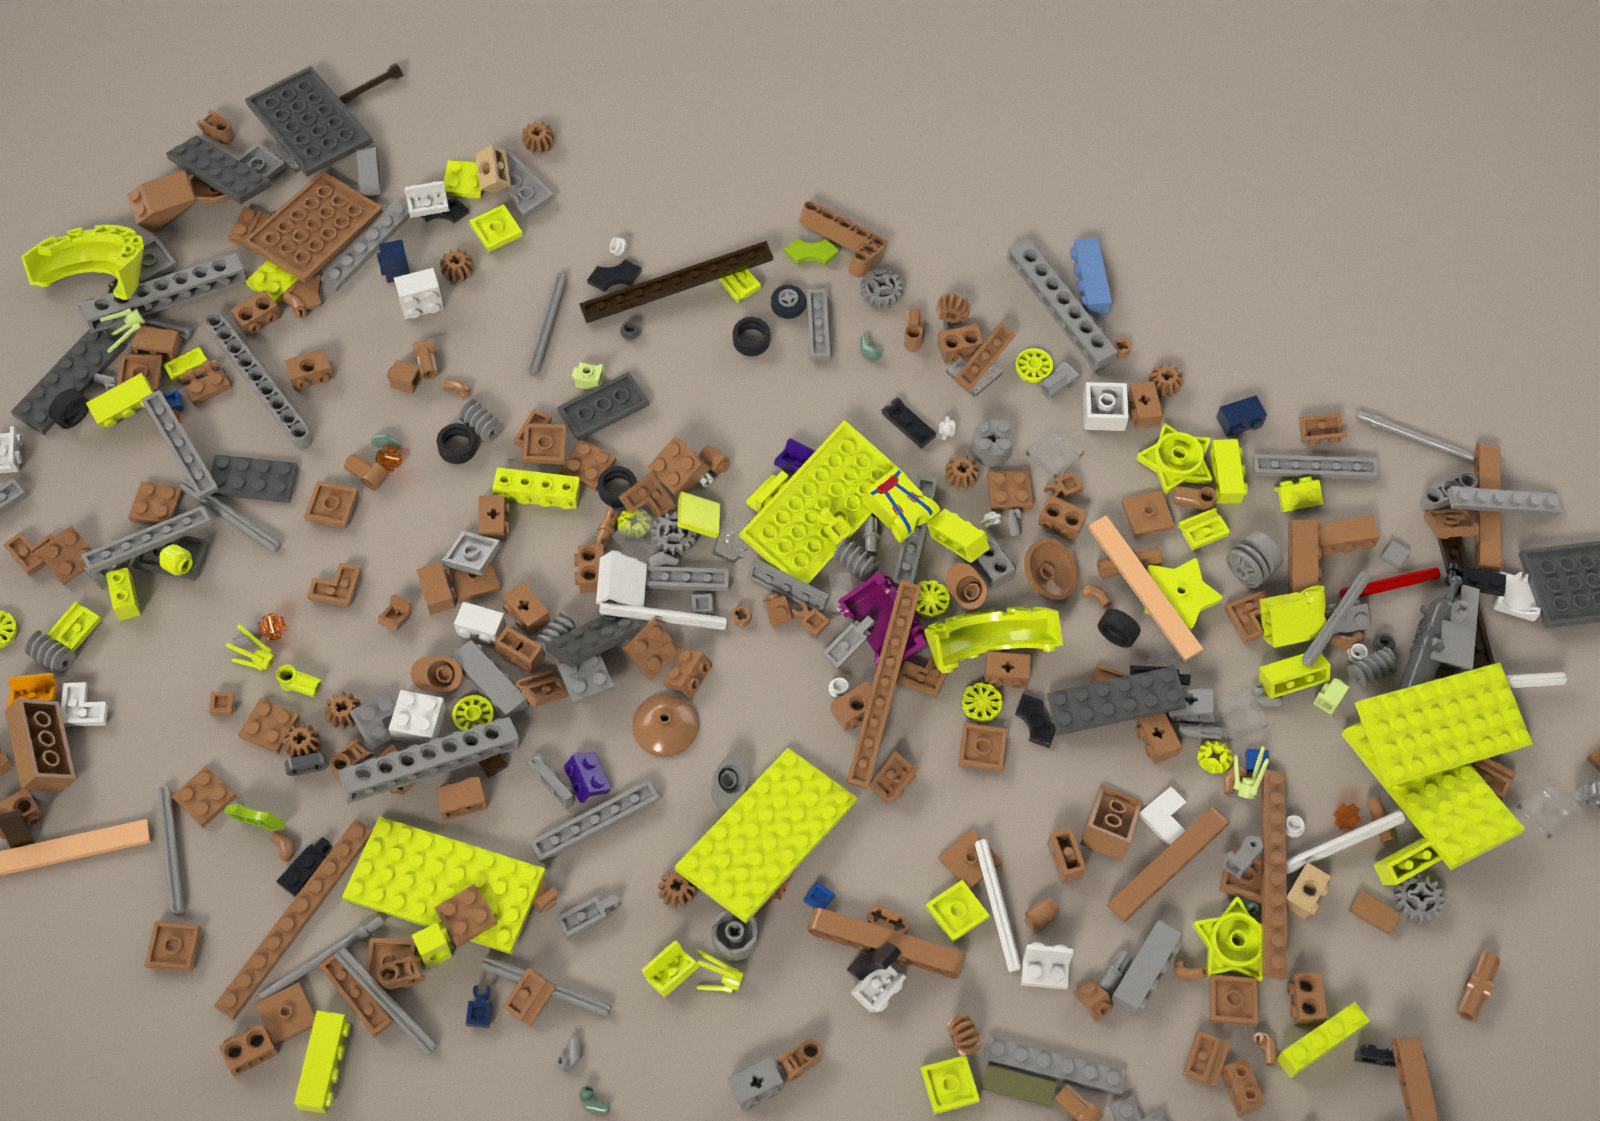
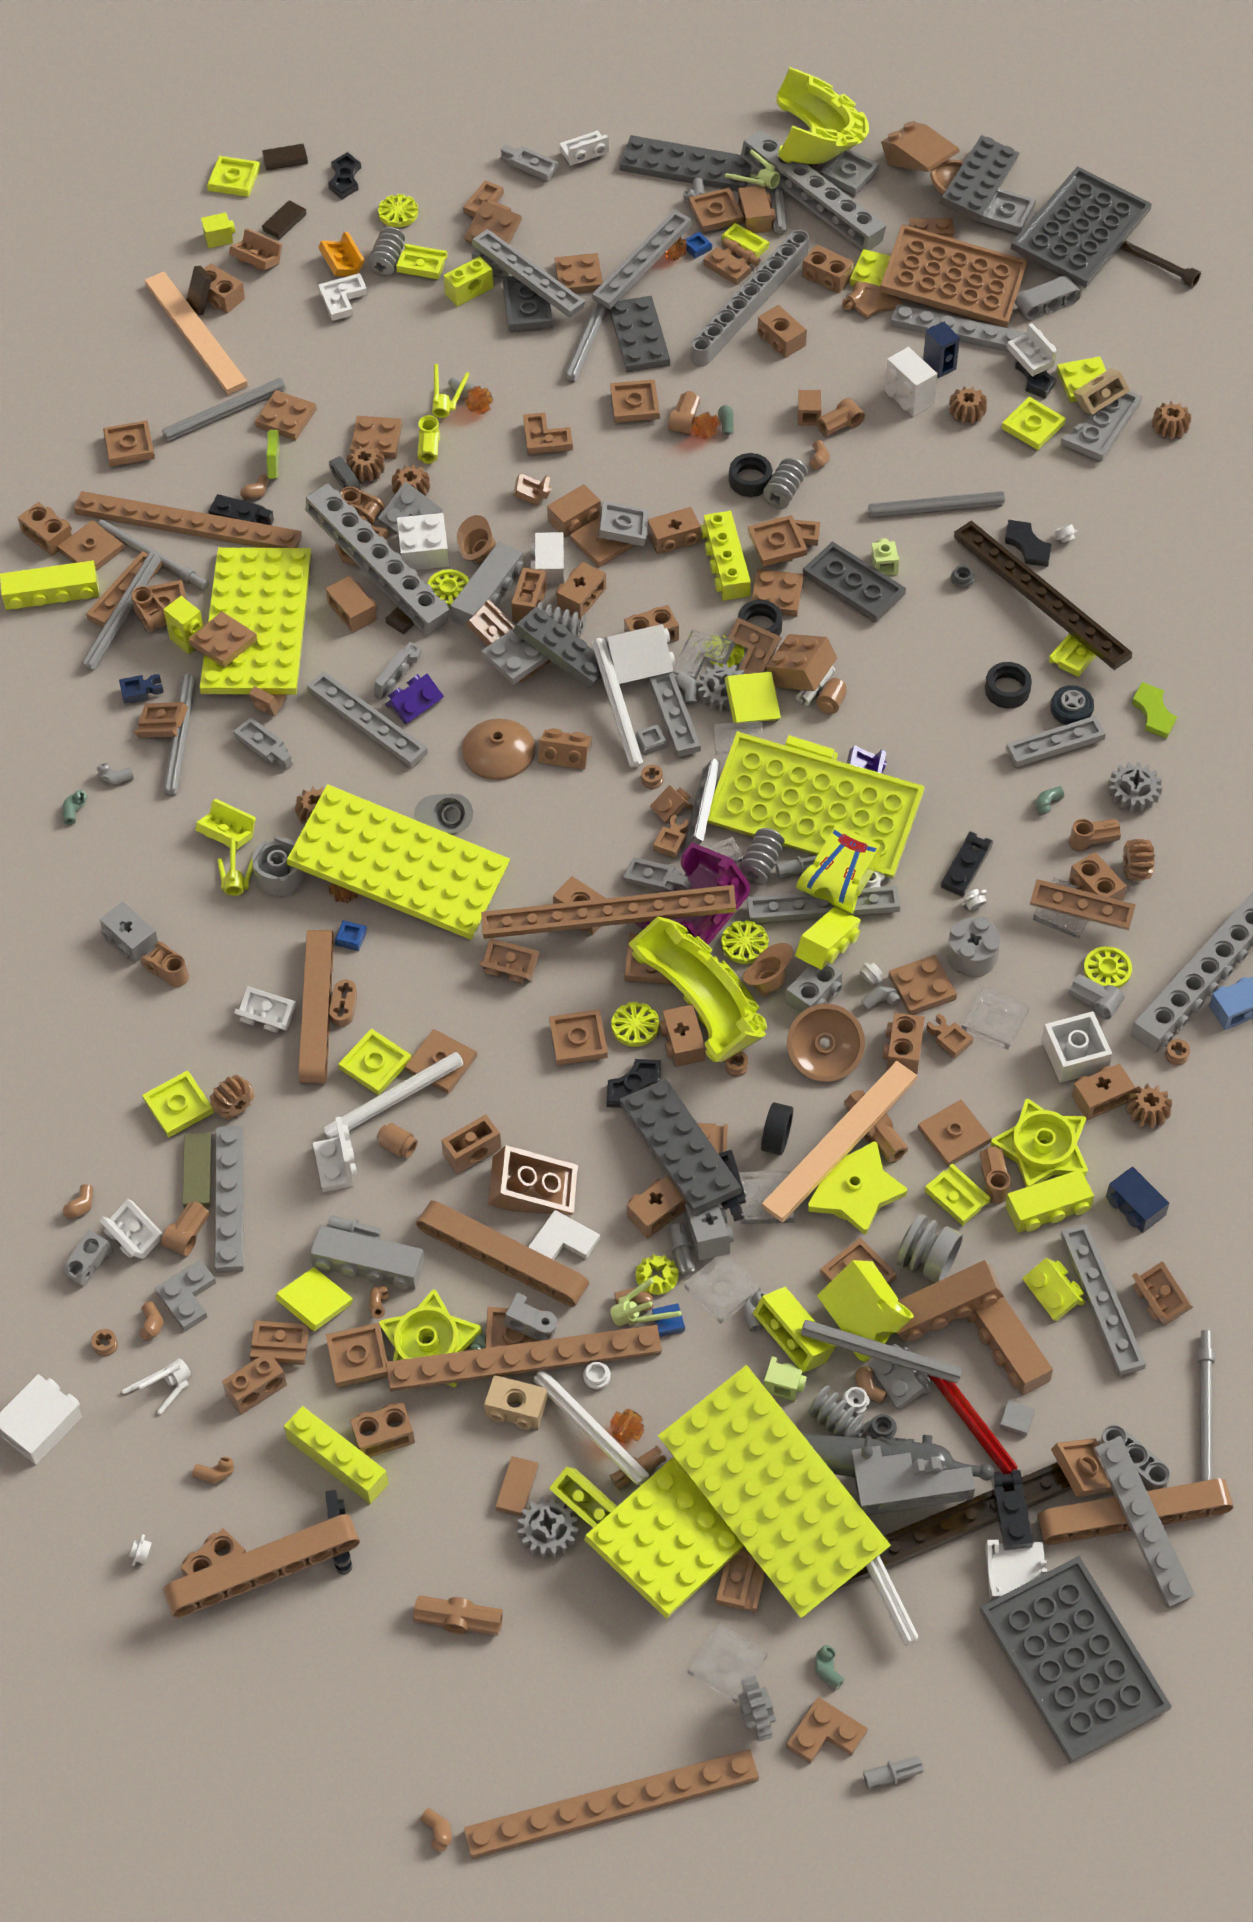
camera: 75 degrees right, 5 degrees down
(40, 745) = (286, 275): medium nougat brick -> none
(74, 415) = (653, 160): black tyre -> none
(120, 401) = (664, 197): neon yellow brick -> none
(175, 560) = (514, 300): neon yellow head -> none
(217, 127) = (1038, 164): medium nougat piece -> none
(221, 703) = (384, 393): medium nougat plate -> none
(606, 528) = (709, 627): medium nougat pin -> none
(651, 649) = (575, 705): medium nougat plate -> none
(836, 528) = (788, 821): neon yellow plate -> none
(838, 687) = (601, 884): white plate -> none
(866, 245) = (1186, 754): medium nougat beam -> none
(873, 961) = (286, 992): black tile -> none
(969, 473) = (921, 928): medium nougat gear -> none
(1094, 999) = (313, 1214): medium nougat bracket -> none
(1098, 592) = (824, 1104): medium nougat arm -> none
(1174, 1020) = (314, 1299): none -> neon yellow tile
(1268, 1046) = (317, 1400): medium nougat arm -> none
(1565, 744) = (825, 1667): none -> sand green arm

